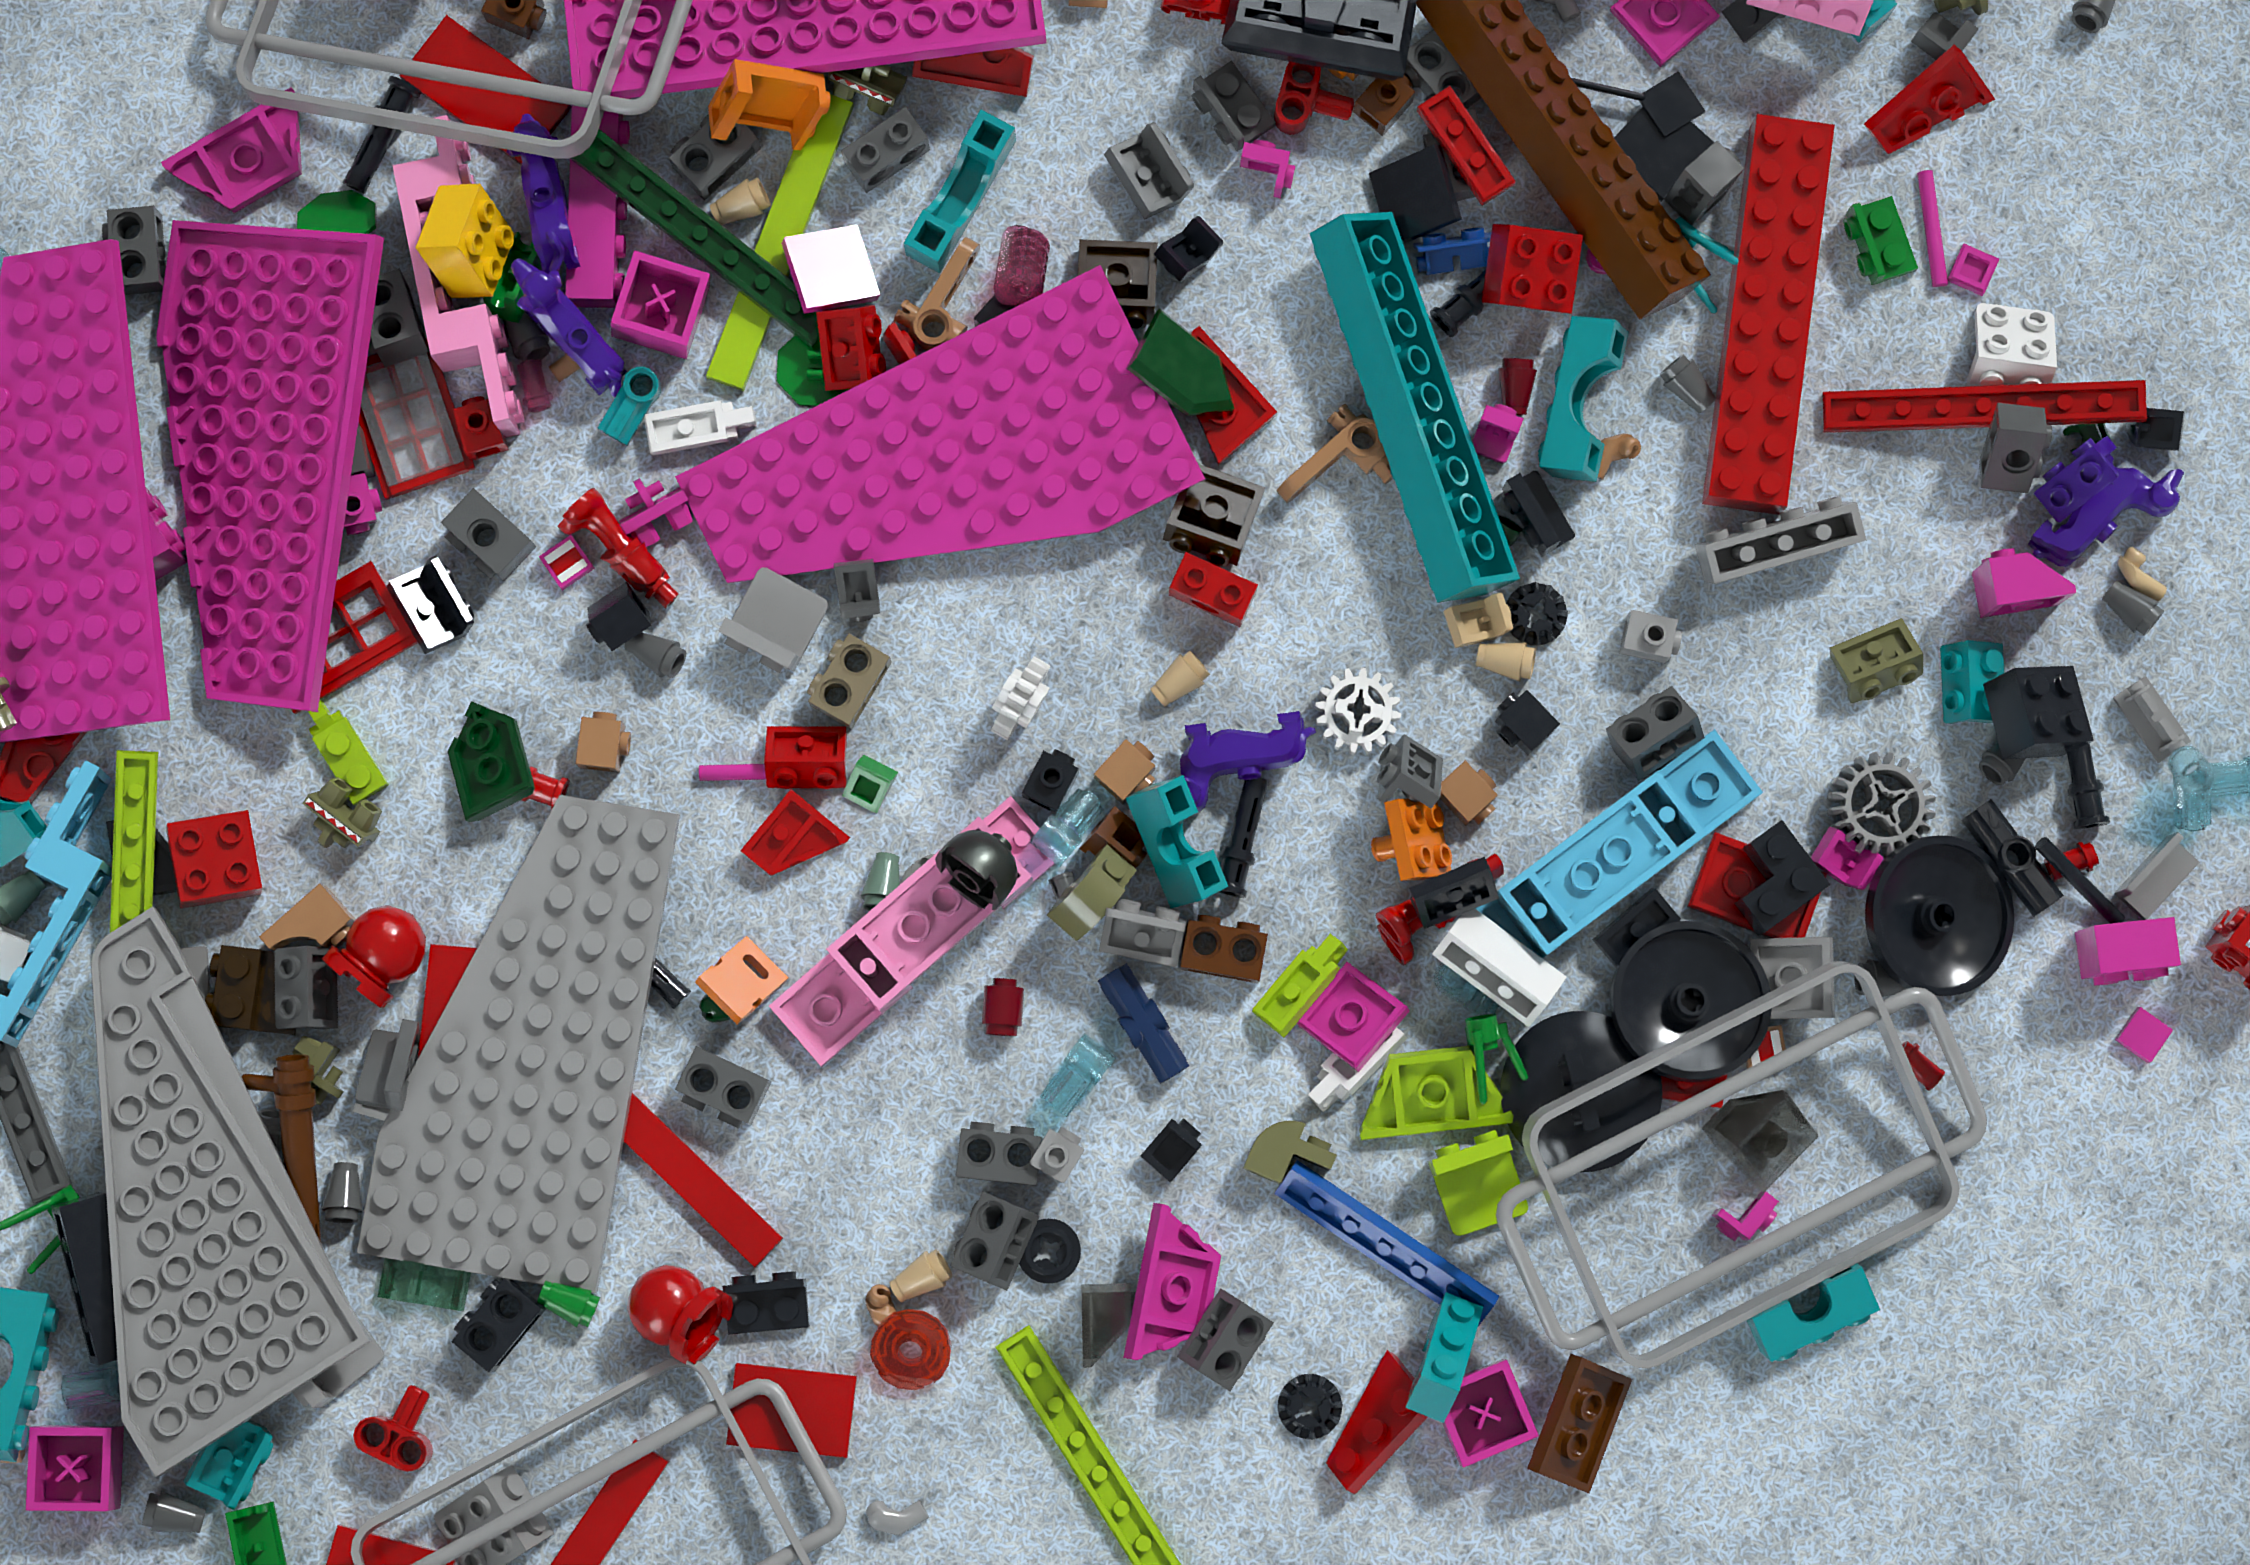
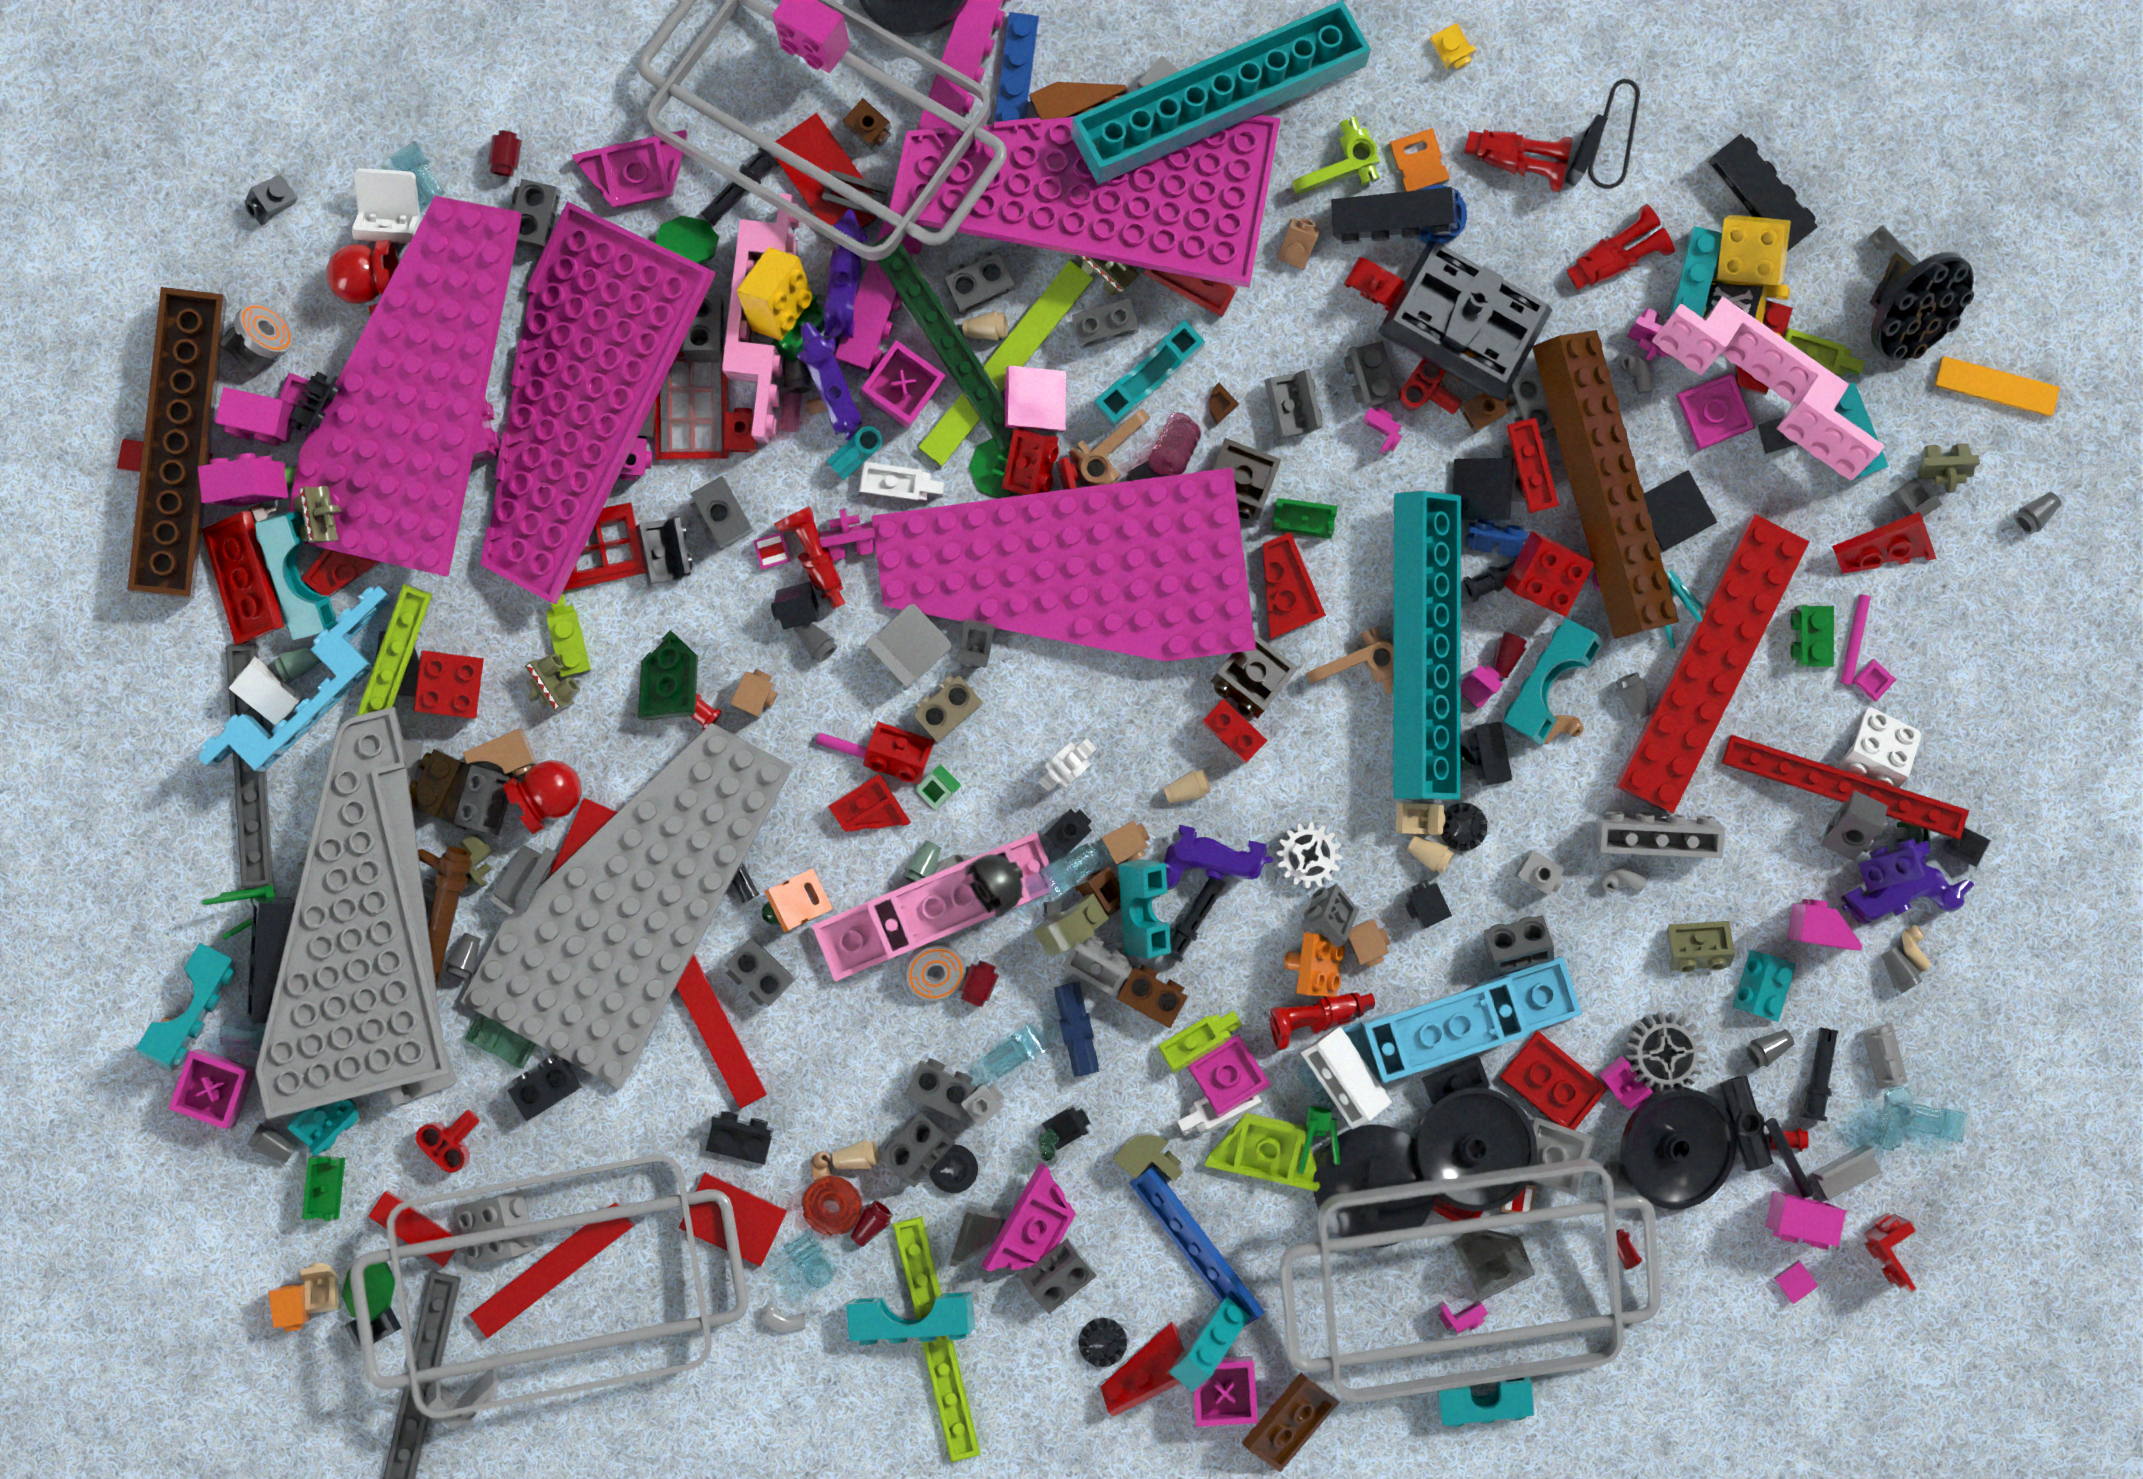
camera: 20 degrees right, 5 degrees up
(76, 189) = (504, 153): none -> dark red brick
(494, 110) = (857, 182): none -> dark grey tile
(569, 1302) = (599, 1089): green cone -> none
(676, 1311) = (673, 1122): red tile -> none
(769, 99) = (1032, 260): orange panel -> none
(905, 1424) = (810, 1257): none -> clear light blue piece
(957, 1026) = (941, 985): none -> light grey tile
(968, 1353) = (871, 1223): none -> dark red cone
(1011, 1474) = (873, 1320): none -> teal arch
(1061, 201) = (1221, 403): none -> reddish brown tile
(1153, 1178) = (1046, 1149): none -> clear green arm
(1181, 368) = (1265, 562): dark green tile -> none
(1189, 249) = (1302, 472): black bracket -> none
(1211, 302) = (1304, 518): none -> green hinge
(1453, 893) = (1331, 1016): black bracket -> none
(1474, 1181) = (1276, 1224): lime bracket -> none
(1668, 103) = (1693, 481): black piece -> none
(1704, 183) = (1698, 552): dark grey brick -> none
(1751, 609) = (1622, 876): none -> light grey arm
(1789, 878) = (1577, 1087): black brick -> none
(2038, 712) = (1802, 1025): black brick -> none

